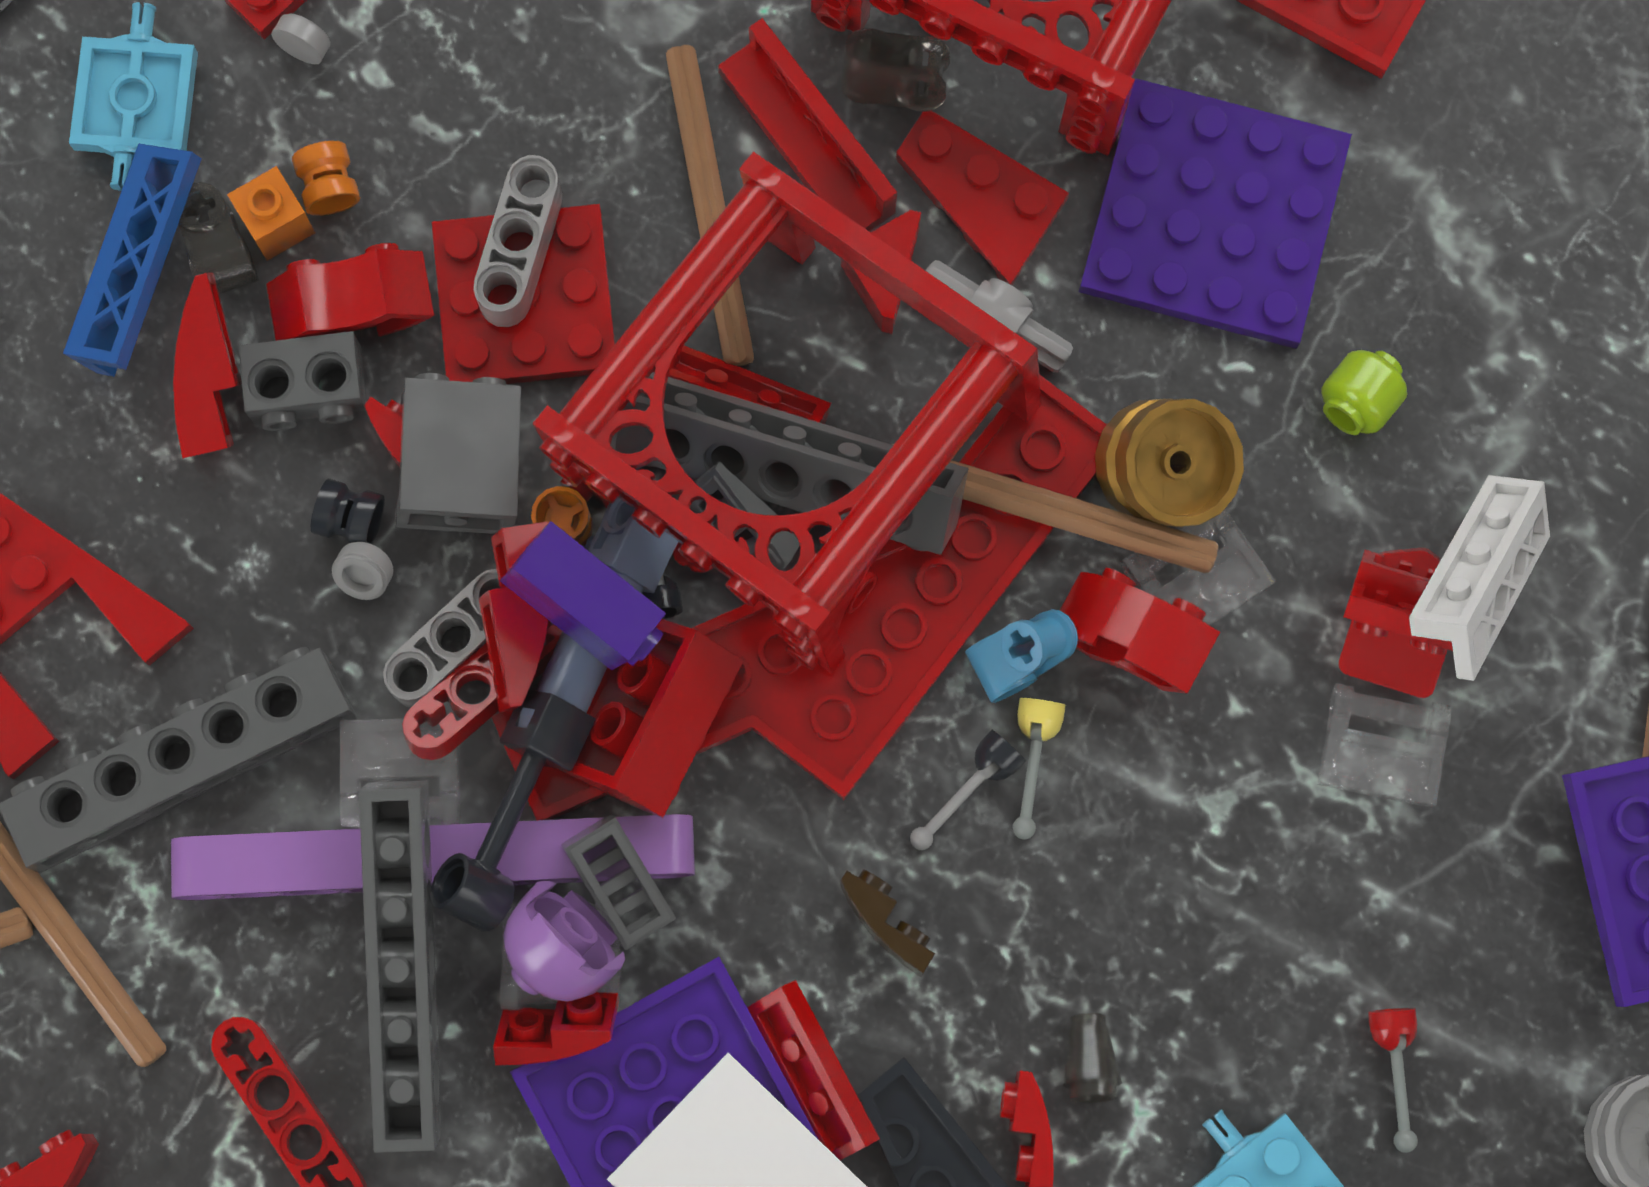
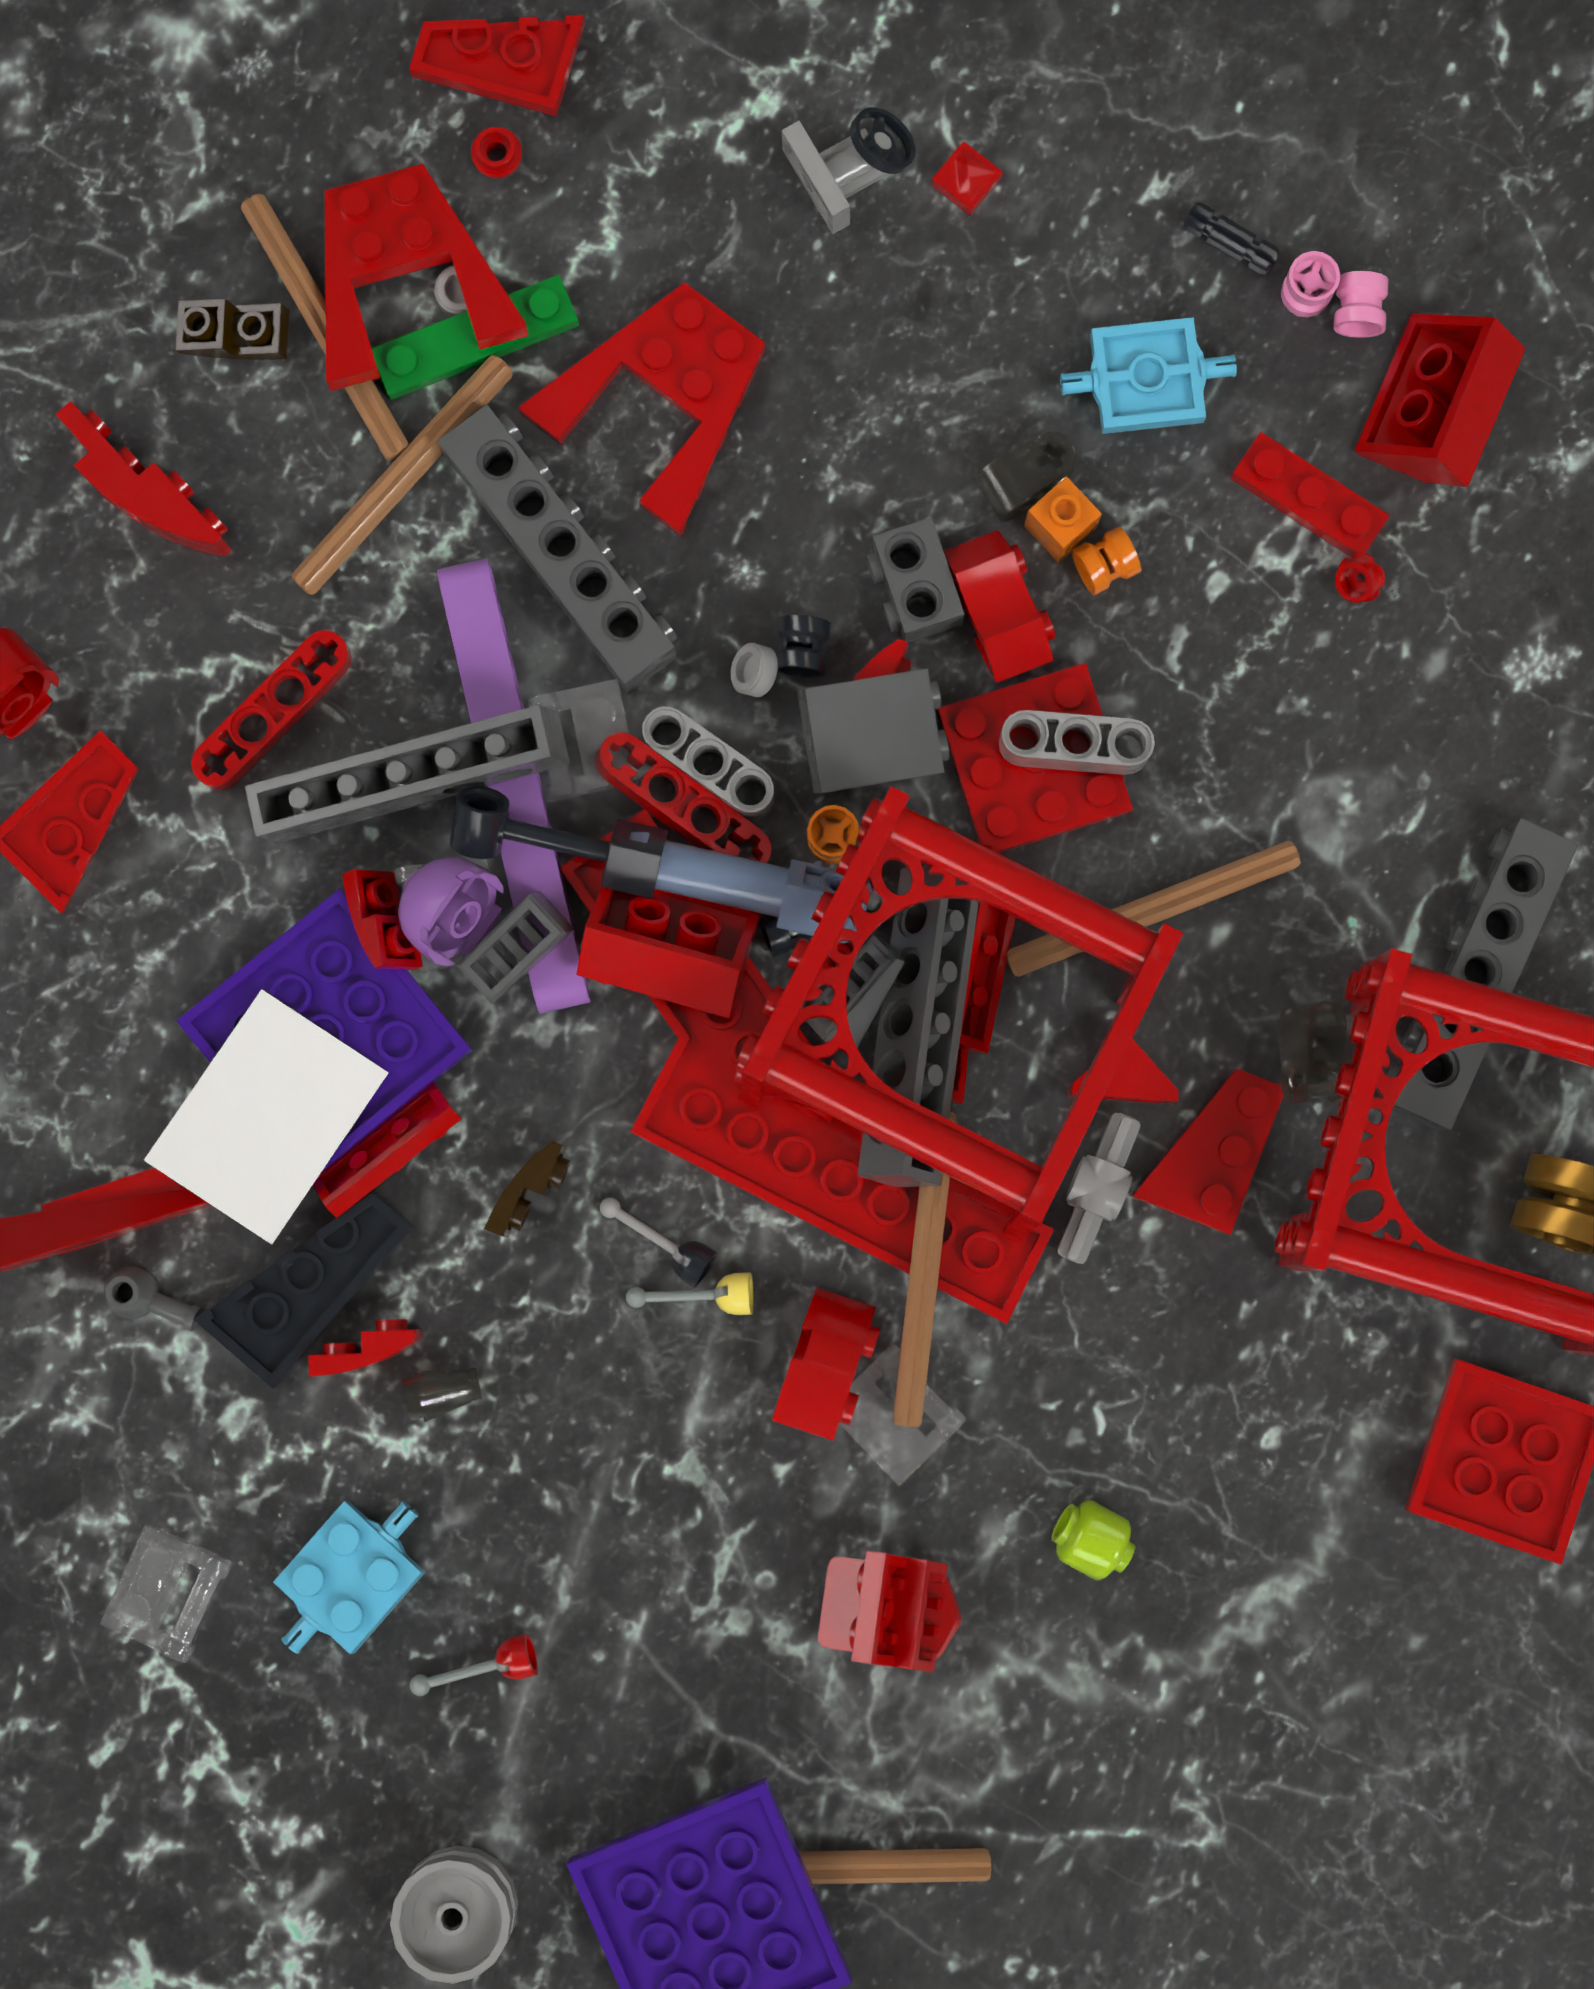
camera: 85 degrees right, 5 degrees up
(131, 258) = (995, 407): blue fence -> none
(202, 369) = (902, 492): red slope -> none
(301, 38) = (1233, 510): light grey tile -> none
(510, 624) = (733, 812): red slope -> none
(585, 598) = (741, 864): dark purple brick -> none
(807, 129) = (1236, 984): red fence -> none
(1022, 652) = (788, 1266): dark azure piece -> none
(1170, 461) = (986, 1369): pearl gold wheel -> none
(1215, 213) = (1241, 1375): dark purple plate -> none
(1381, 763) = (751, 1611): clear plate -> none
(1484, 570) = (937, 1674): white fence -> none

